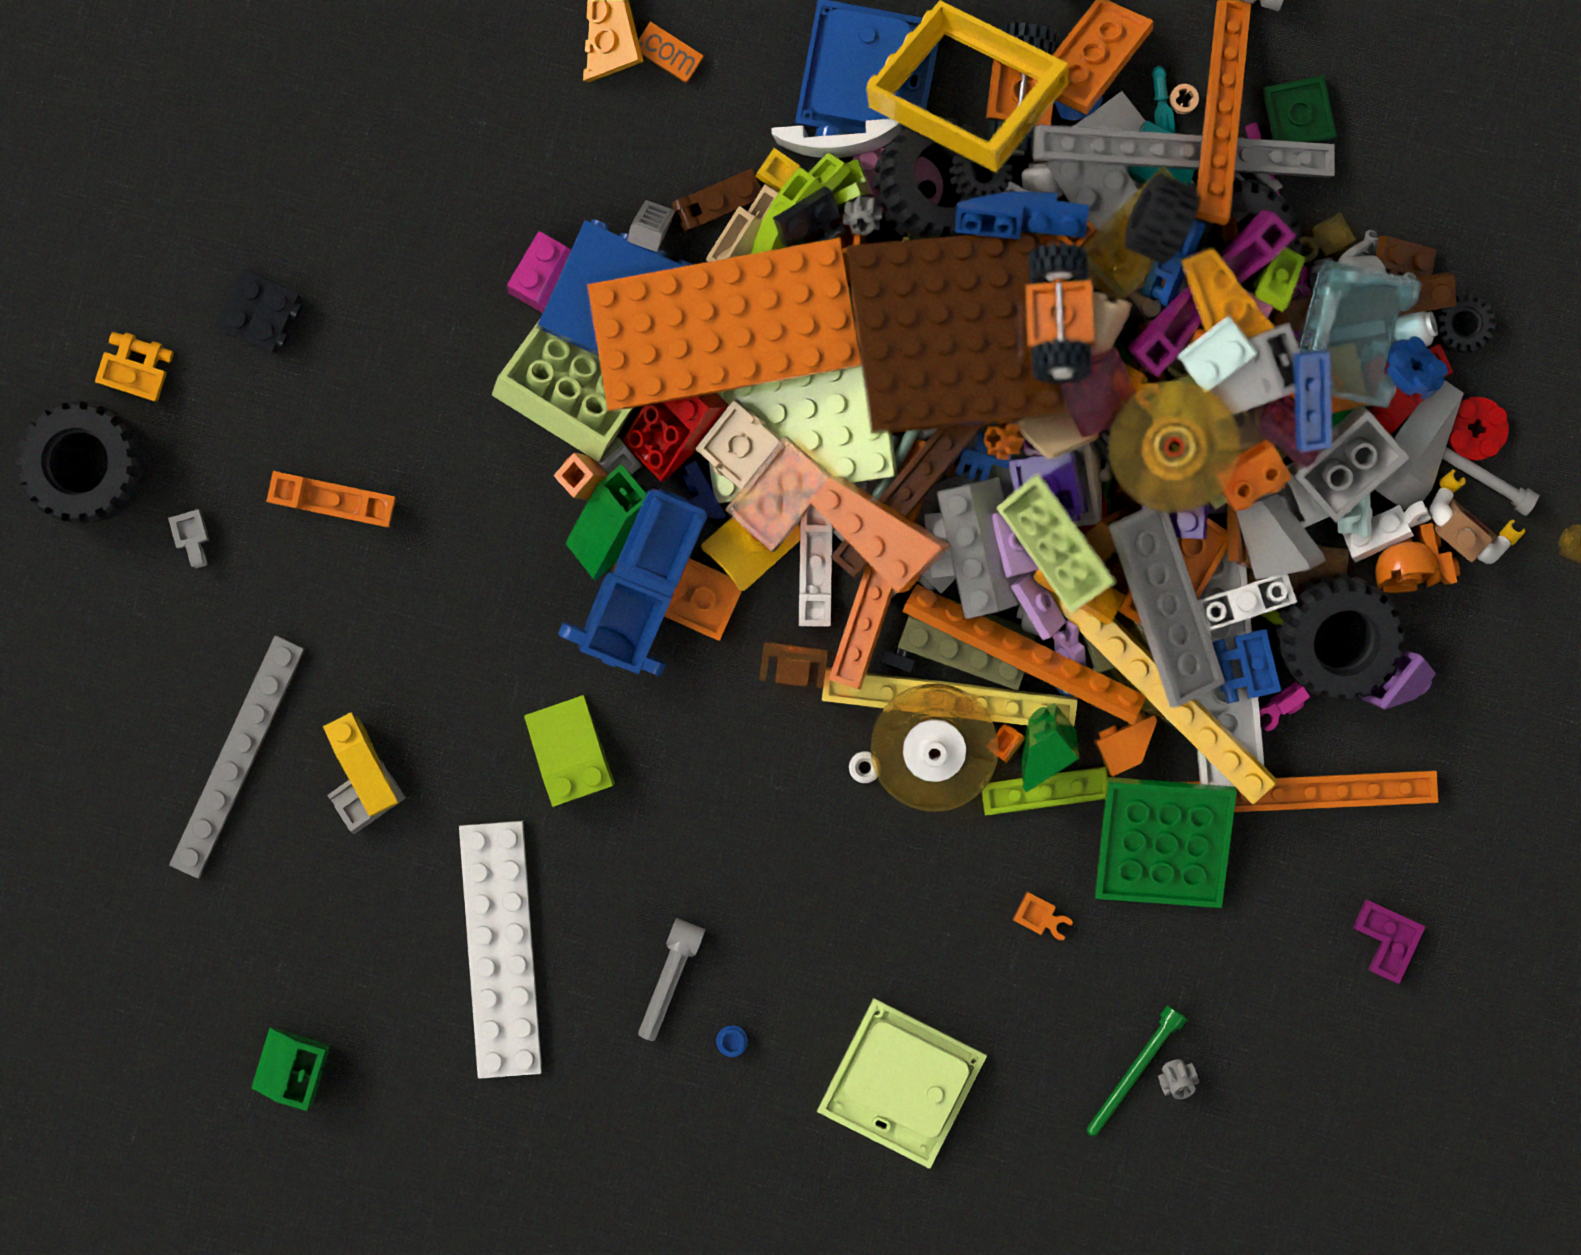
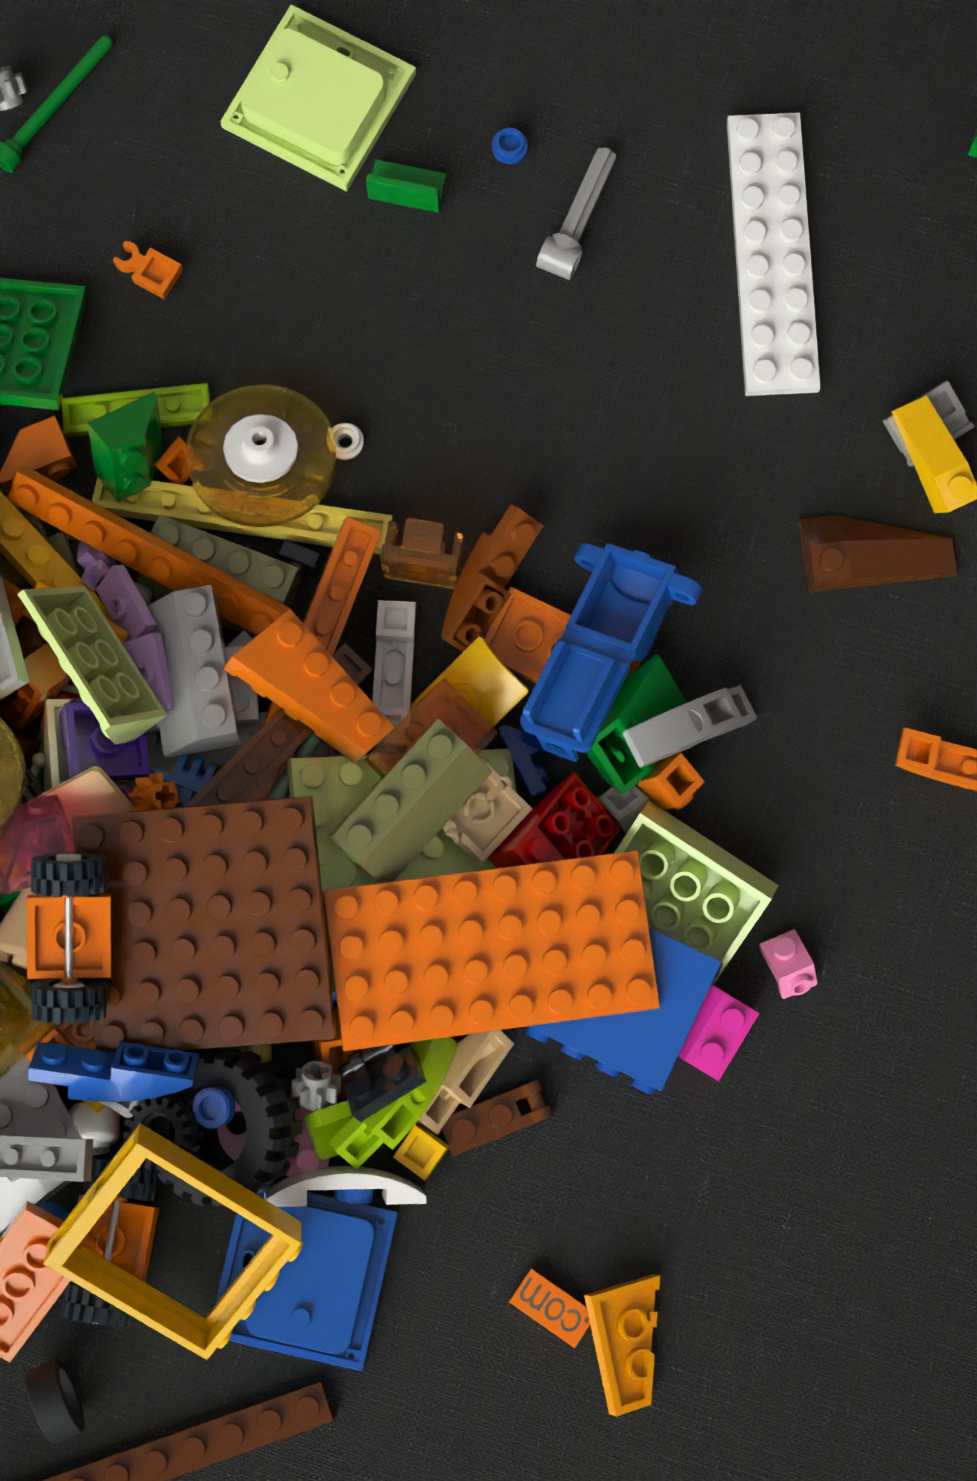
camera: 175 degrees left, 10 degrees down
(421, 682) = (861, 553): none -> reddish brown wedge
(481, 331) = (789, 964): none -> bright pink bracket
(565, 520) = (689, 725): none -> light grey slope
(568, 751) = (690, 466): lime slope -> none
(650, 225) = (585, 1069): light grey slope -> none
(744, 639) = (482, 582): none -> dark orange slope
(795, 441) = (410, 802): none -> olive slope
(820, 1002) = (406, 186): none -> green panel
(941, 190) = (213, 1107): none -> blue tile

